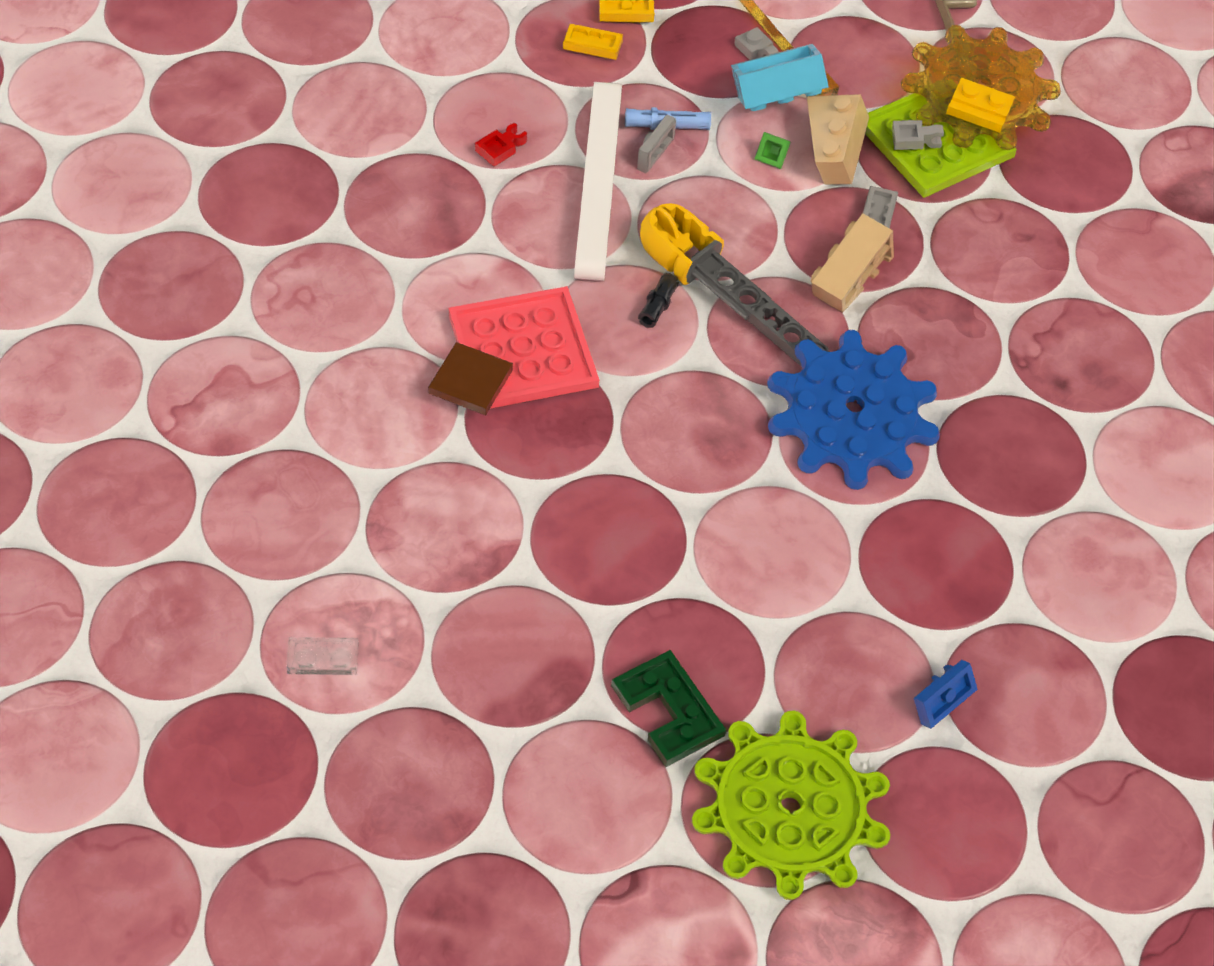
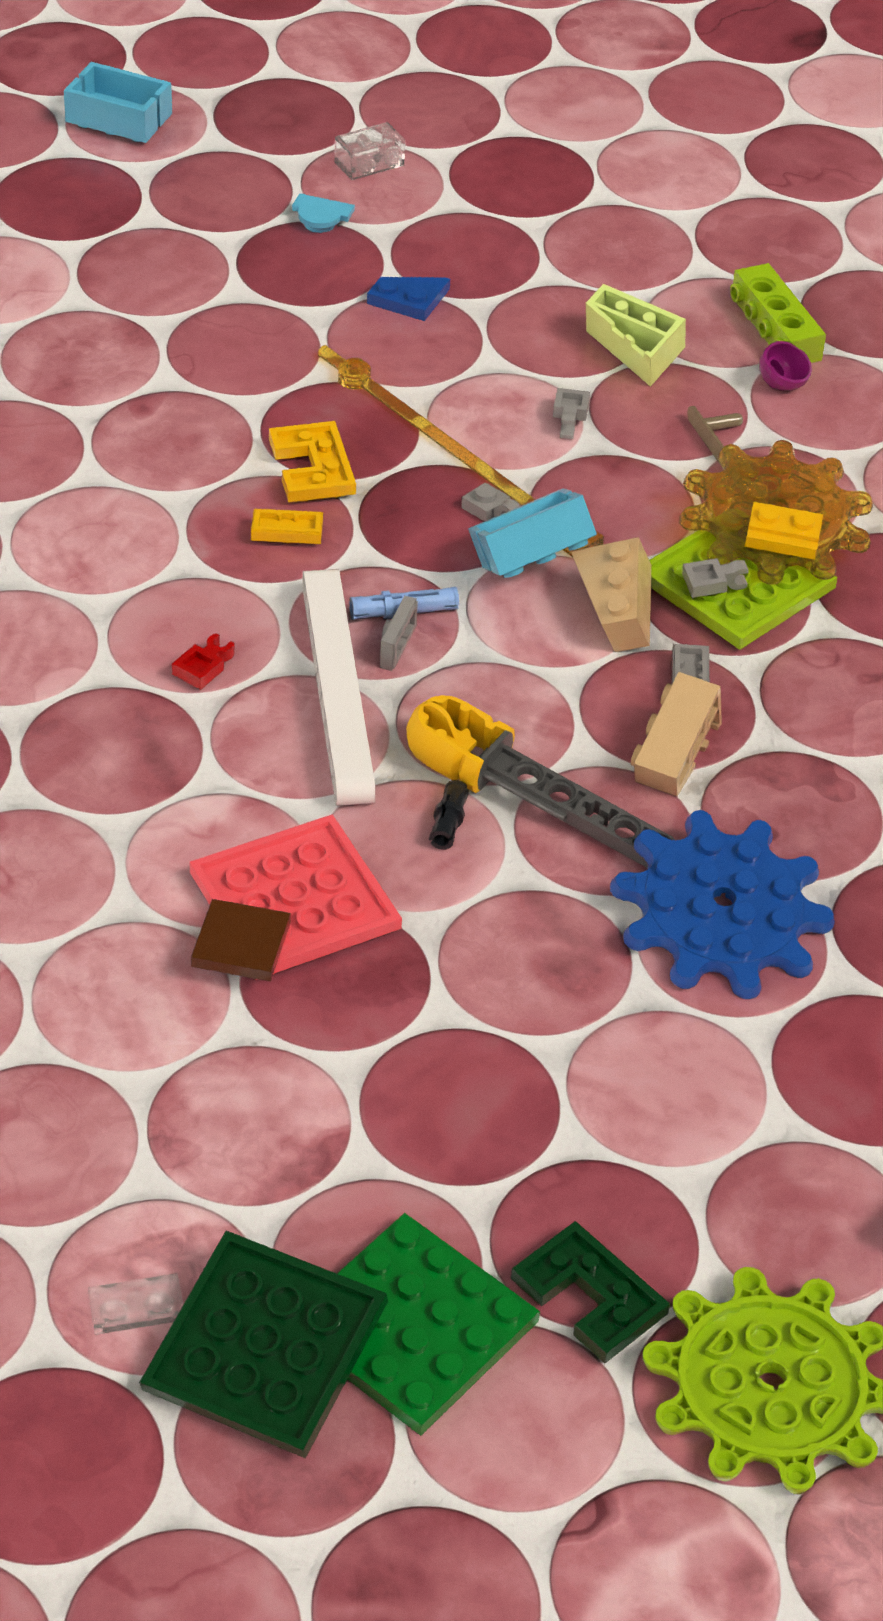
camera: 10 degrees left, 10 degrees down
(409, 706) = (264, 1343): none -> dark green plate
(527, 707) = (439, 1326): none -> green plate
(772, 150) = (543, 620): bright green slope -> none

